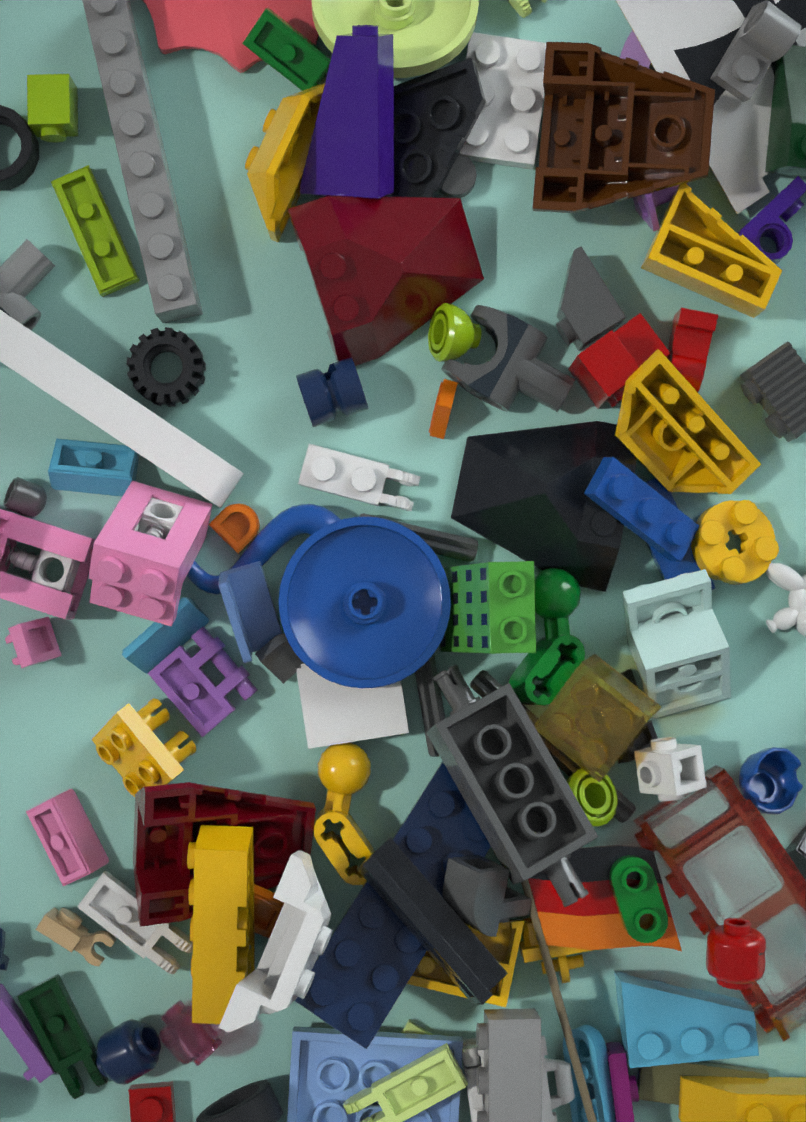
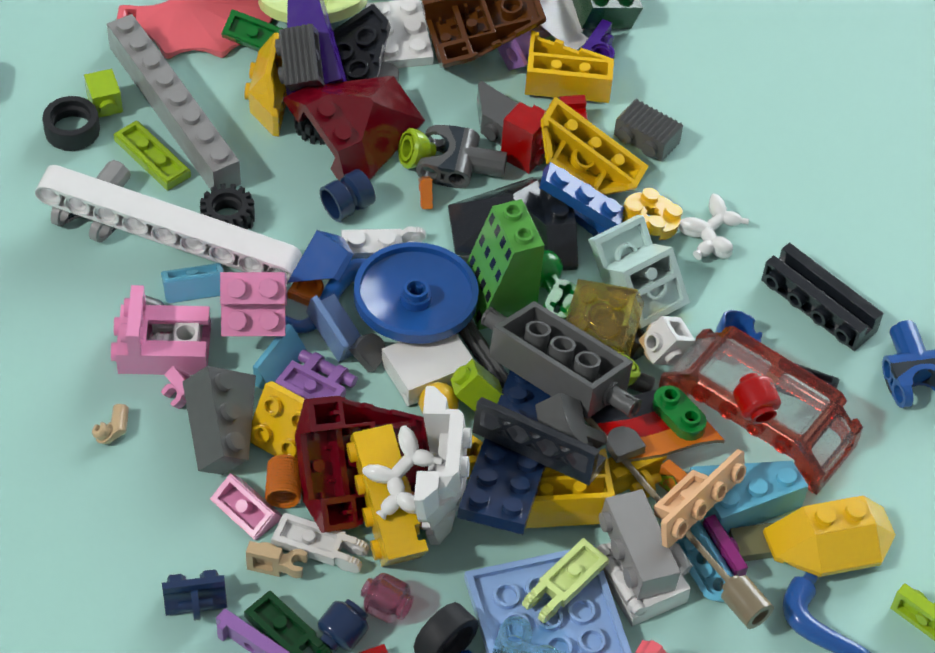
camera: 20 degrees left, 35 degrees down
(60, 719) = (220, 417): none -> dark grey wedge
(114, 828) = (283, 482): none -> orange piece
(213, 930) = (392, 477): none -> white piece
(266, 506) = (323, 258): none -> blue slope
(325, 155) = (300, 57): none -> dark grey brick
(396, 769) = (473, 382): none -> lime brick
(547, 928) = (624, 444): none -> dark grey tile
(596, 1049) = (696, 496): none -> light nougat bracket
(601, 973) = (670, 474): none -> orange tile

